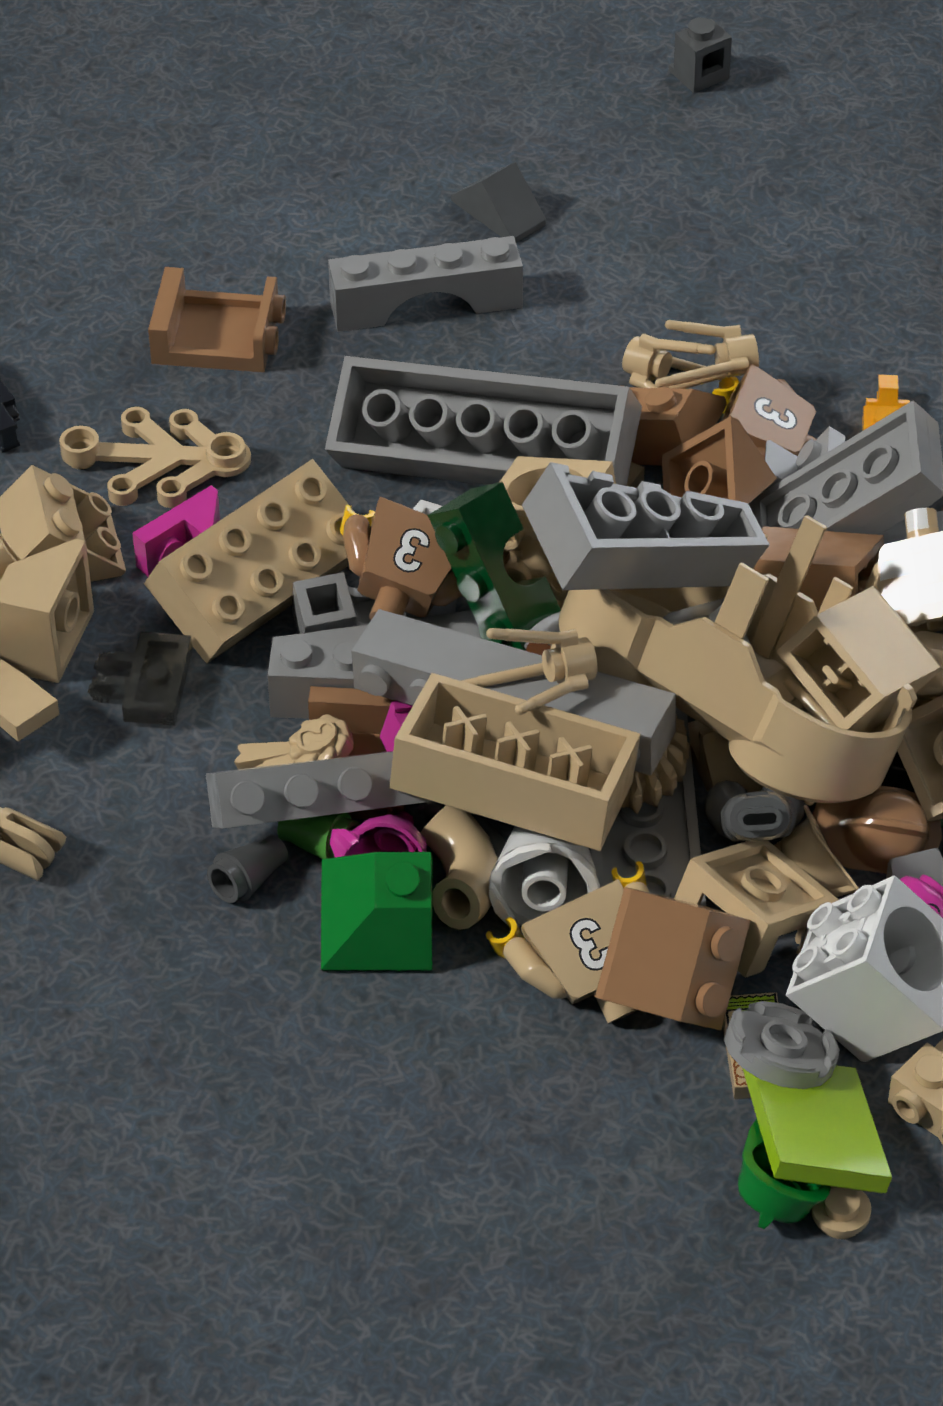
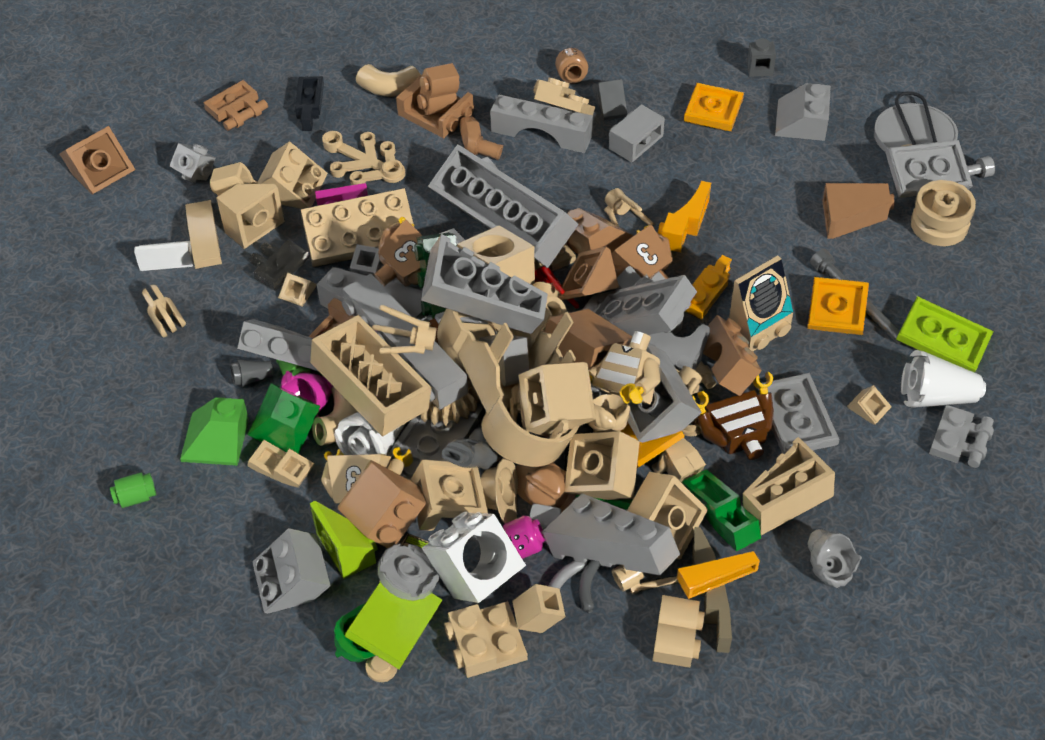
camera: 30 degrees right, 5 degrees up
(101, 316) = (386, 83): none -> tan cylinder
(203, 1137) = (133, 489): none -> bright green brick
(213, 708) = (296, 289): none -> tan slope
(221, 286) = (438, 89): none -> medium nougat brick
(268, 986) = (216, 432): none -> bright green slope
(314, 741) = (310, 327): tan piece -> none
(324, 346) = (473, 140): none -> medium nougat arm
(399, 174) = (571, 65): none -> medium nougat head
(423, 224) = (559, 94): none -> tan plate
(433, 990) = (282, 466): none -> tan slope
(580, 1139) = (291, 571): none -> light grey slope
(595, 240) = (636, 133): none -> light grey brick
(630, 1051) = (343, 541): none -> lime slope
(681, 157) = (713, 107): none -> light orange plate
(731, 357) = (647, 216): tan plant -> none
(785, 341) = (687, 219): none -> light orange slope
(833, 113) = (804, 112): none -> light grey slope

